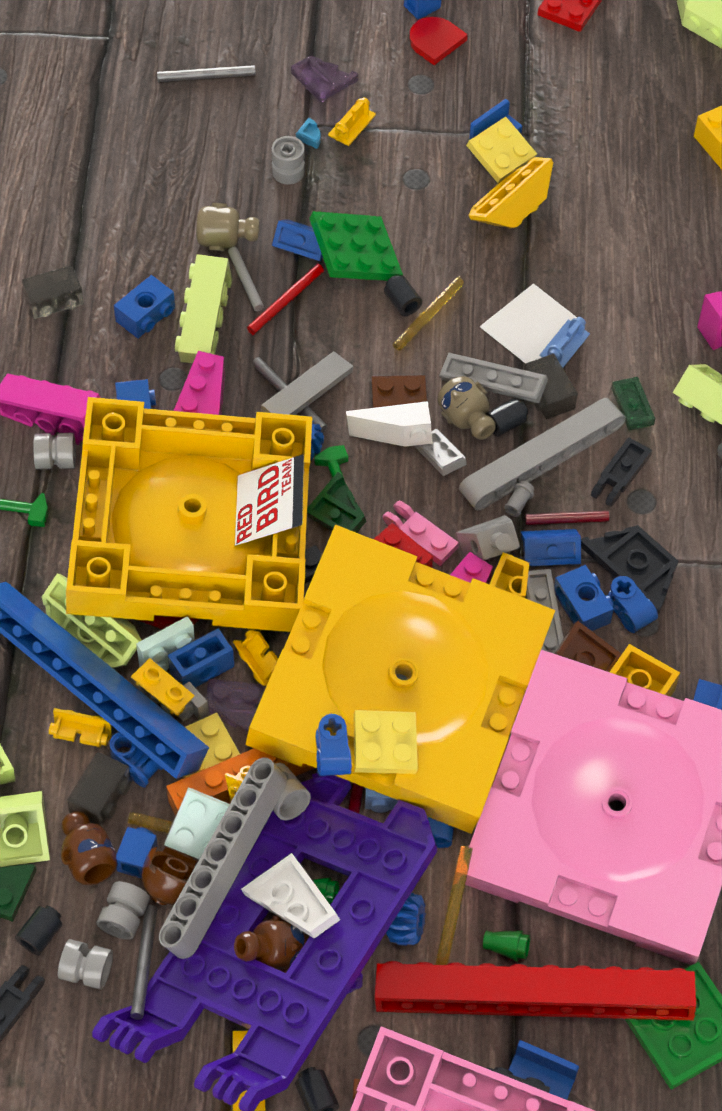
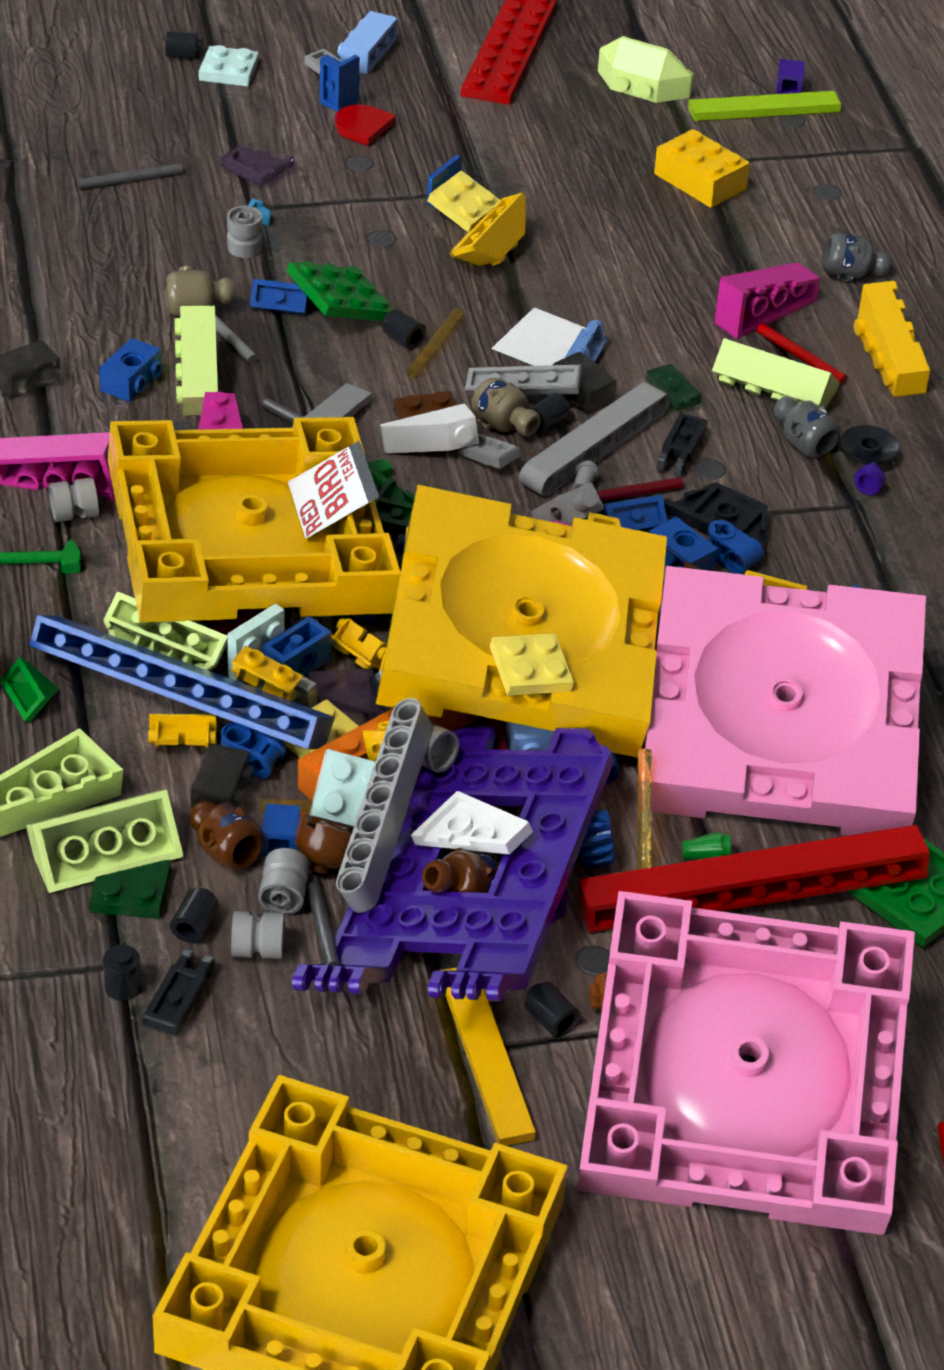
camera: 15 degrees left, 15 degrees down
(285, 299) = (278, 349): red bar -> none
(332, 751) = (480, 669): blue piece -> none
(353, 122) = (301, 197): yellow hinge -> none

